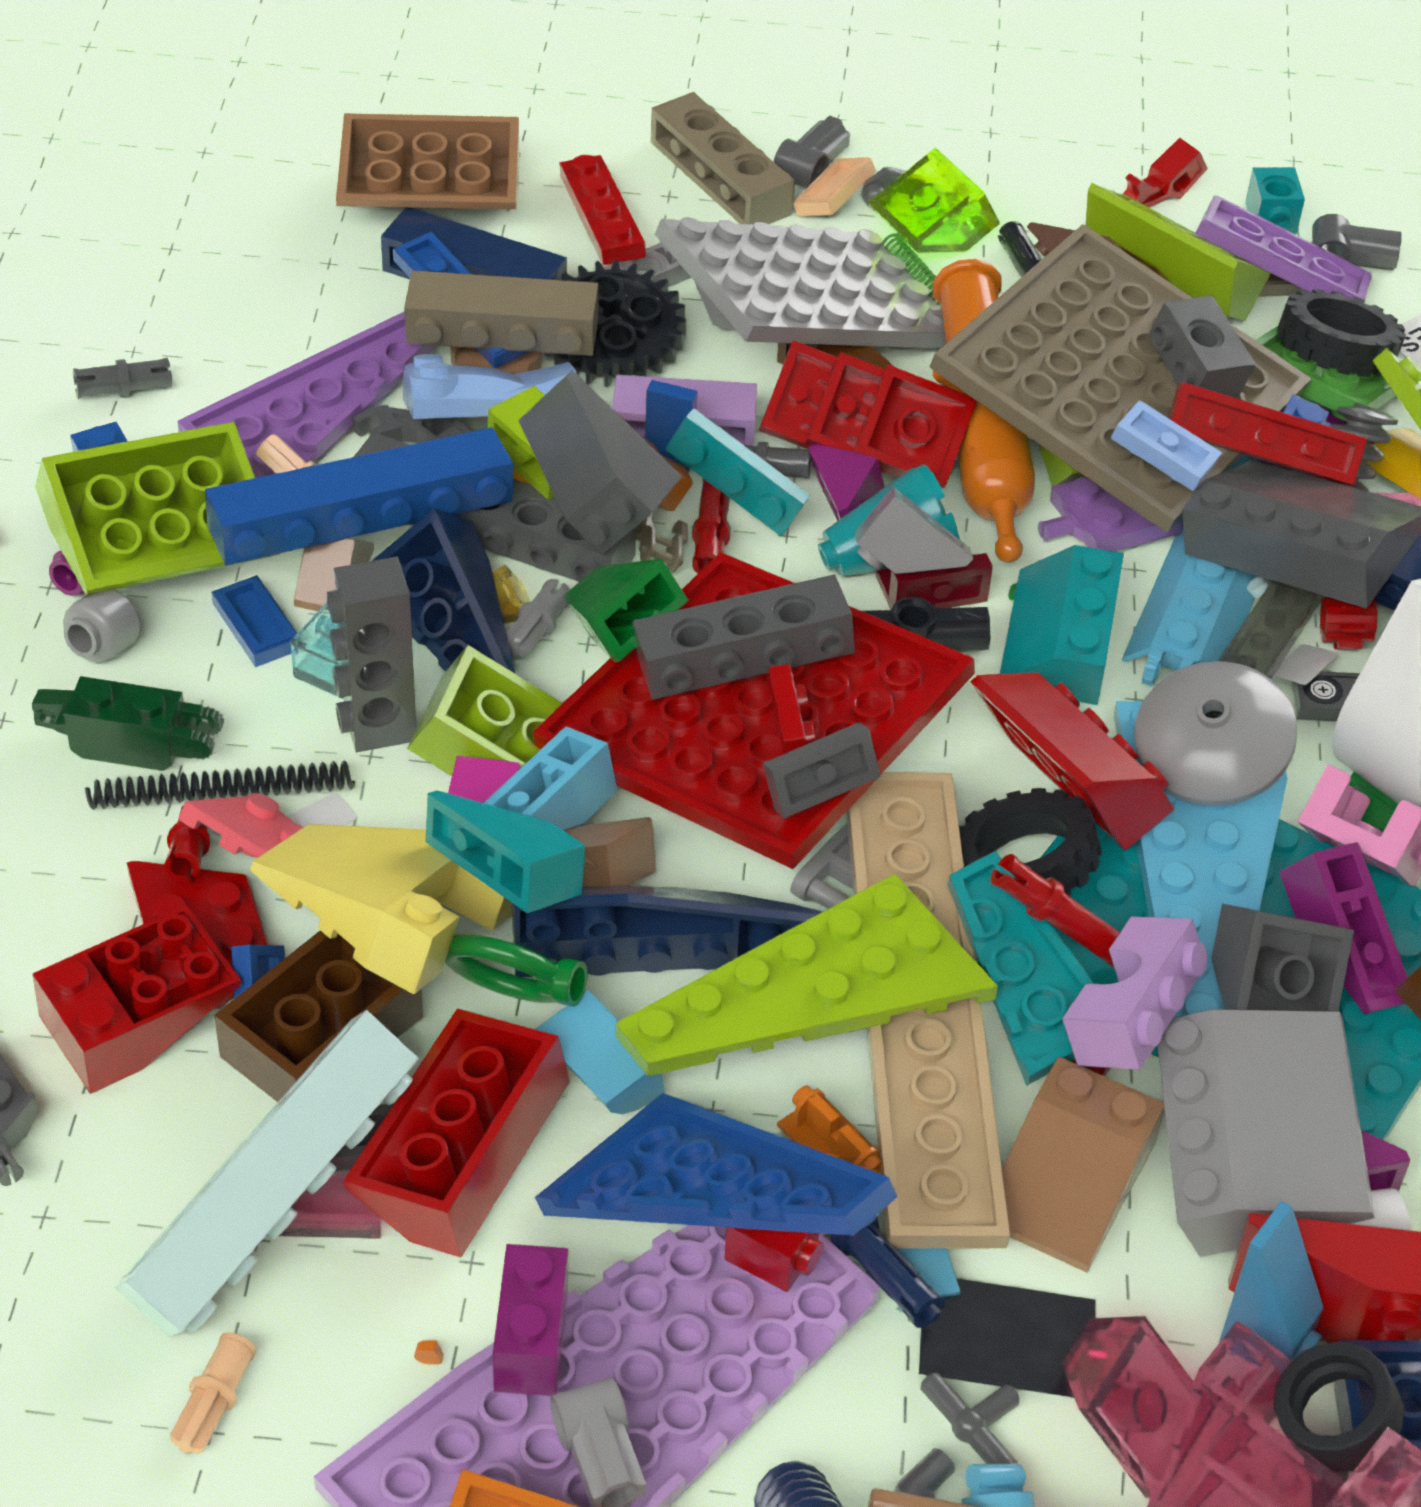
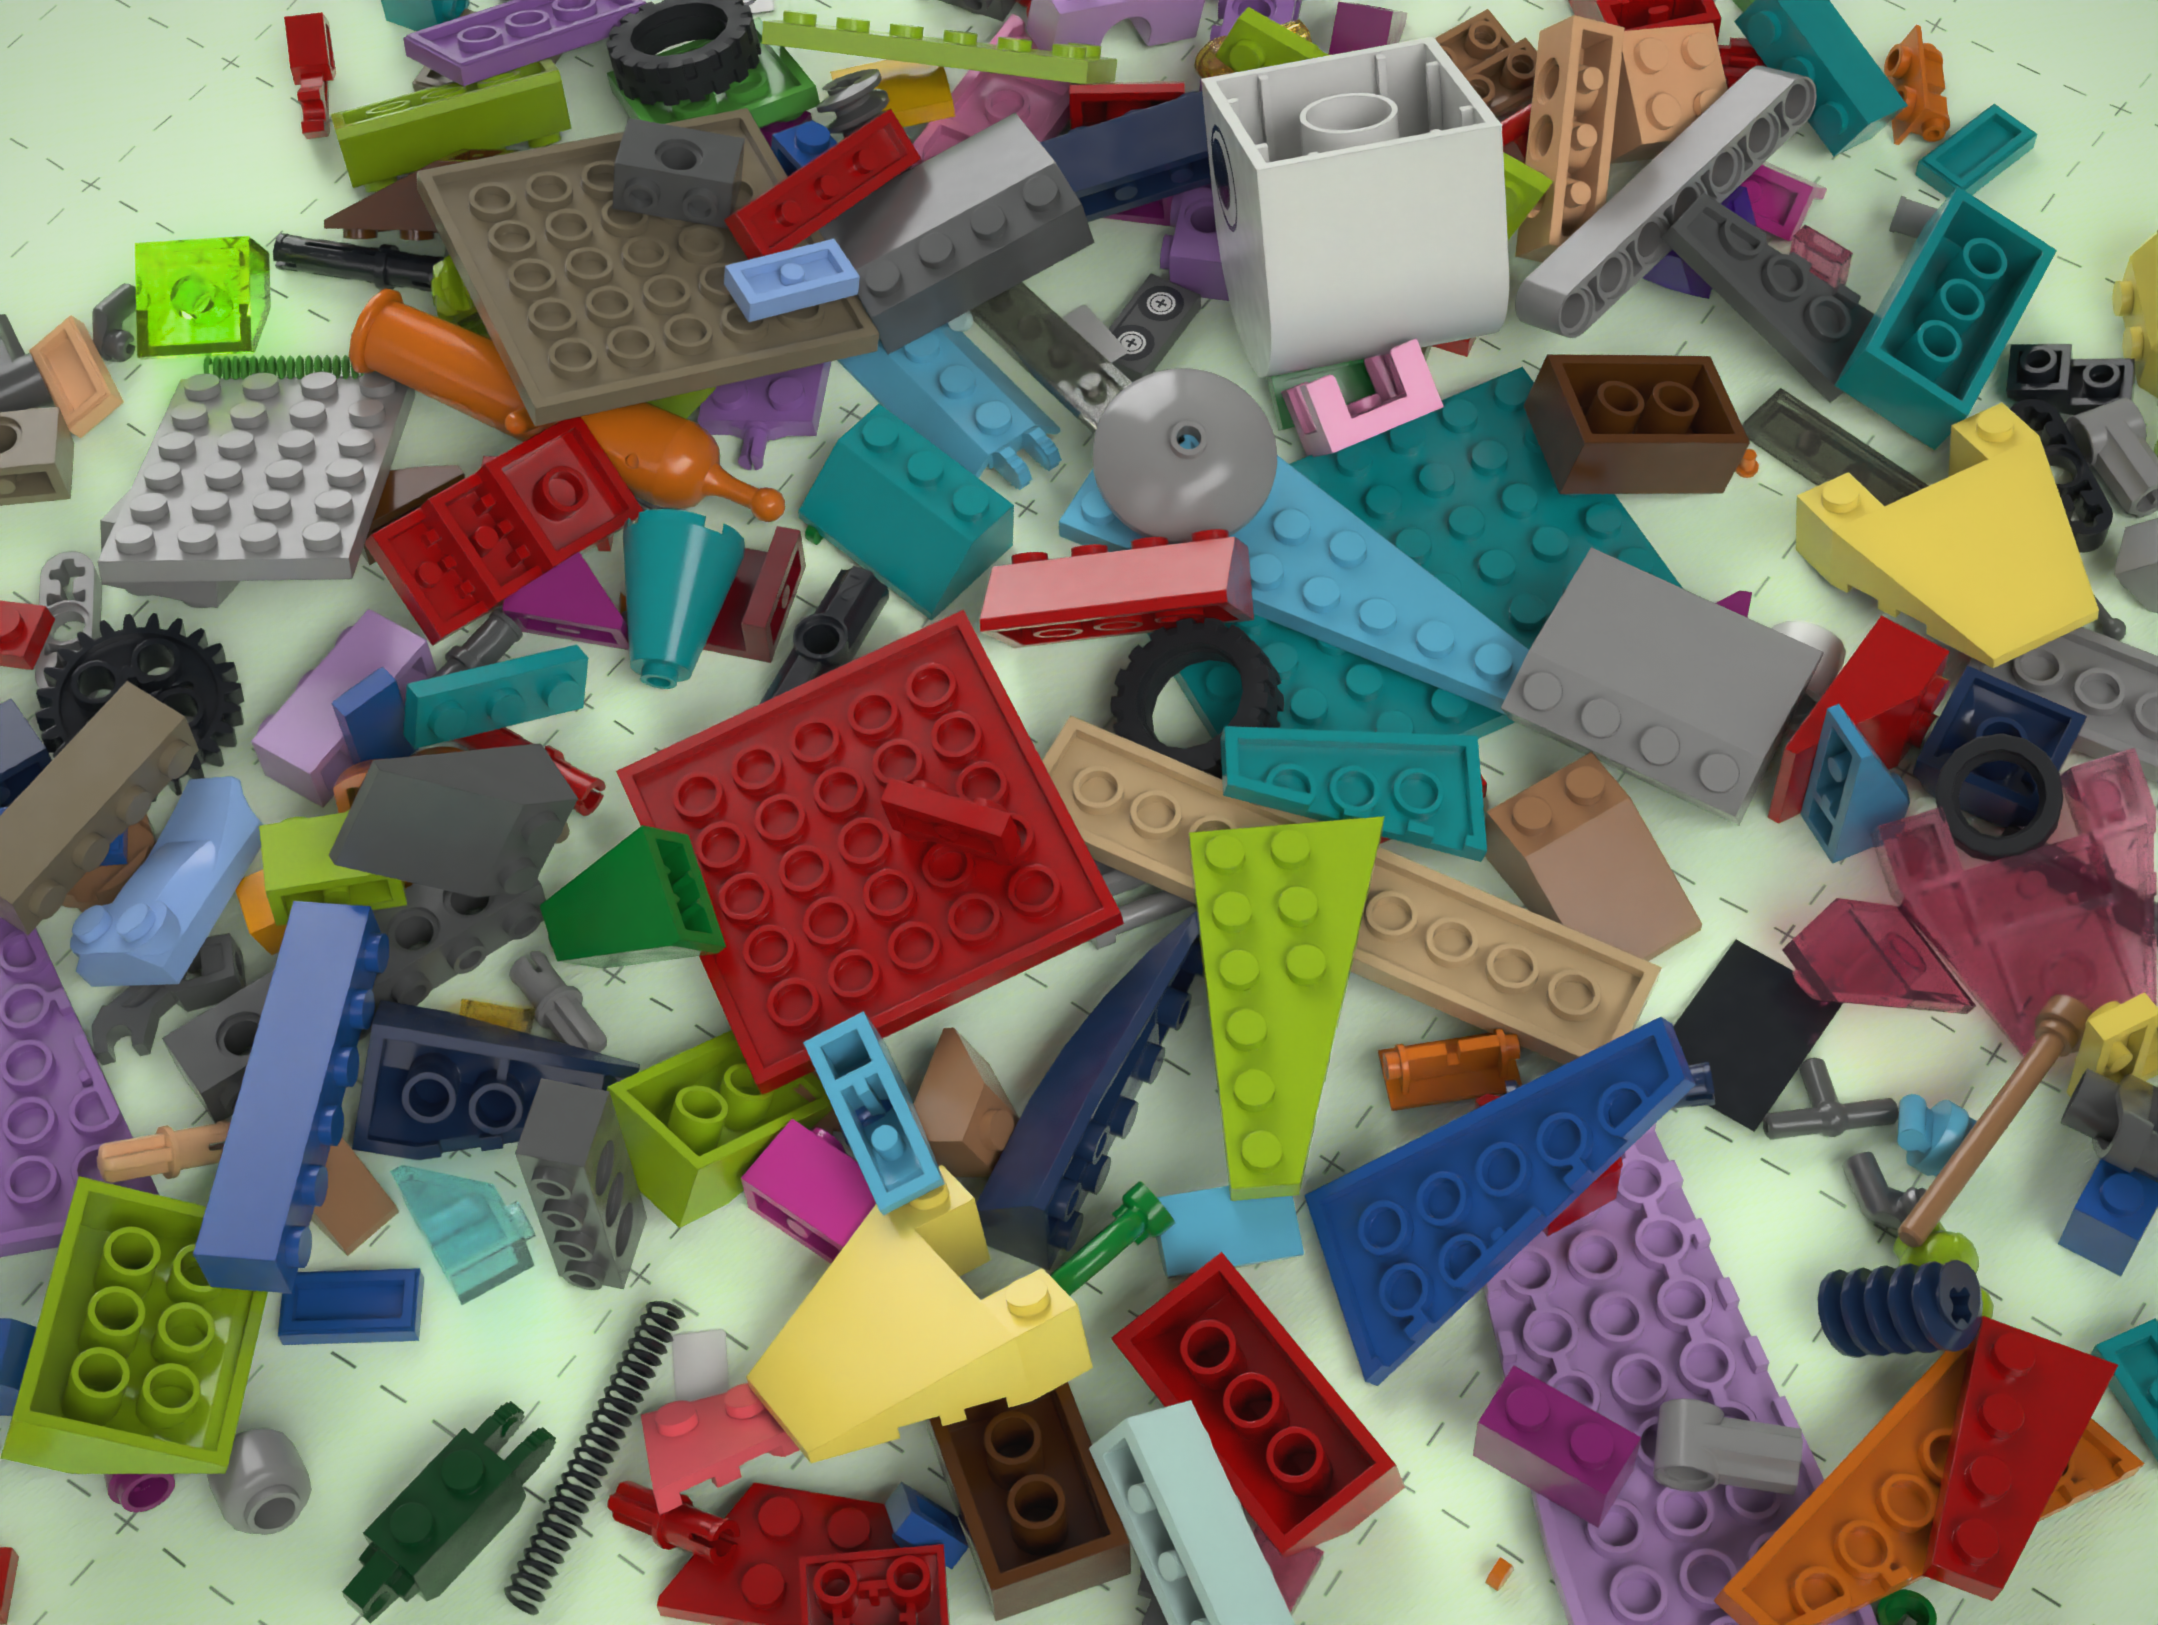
camera: 55 degrees left, 10 degrees up
(506, 850) = (973, 1179): teal slope -> none
(743, 636) = (805, 715): dark grey brick -> none
(821, 770) = (1046, 824): dark grey plate -> none
(908, 538) = (730, 584): light grey slope -> none
(1048, 901) = (1324, 712): red pin -> none
(1155, 971) = (1503, 734): lavender arch -> none
(1279, 961) = (1493, 567): dark grey slope -> none
(1339, 891) = (1460, 486): magenta slope -> none
(1347, 624) = (1066, 279): red gear -> none

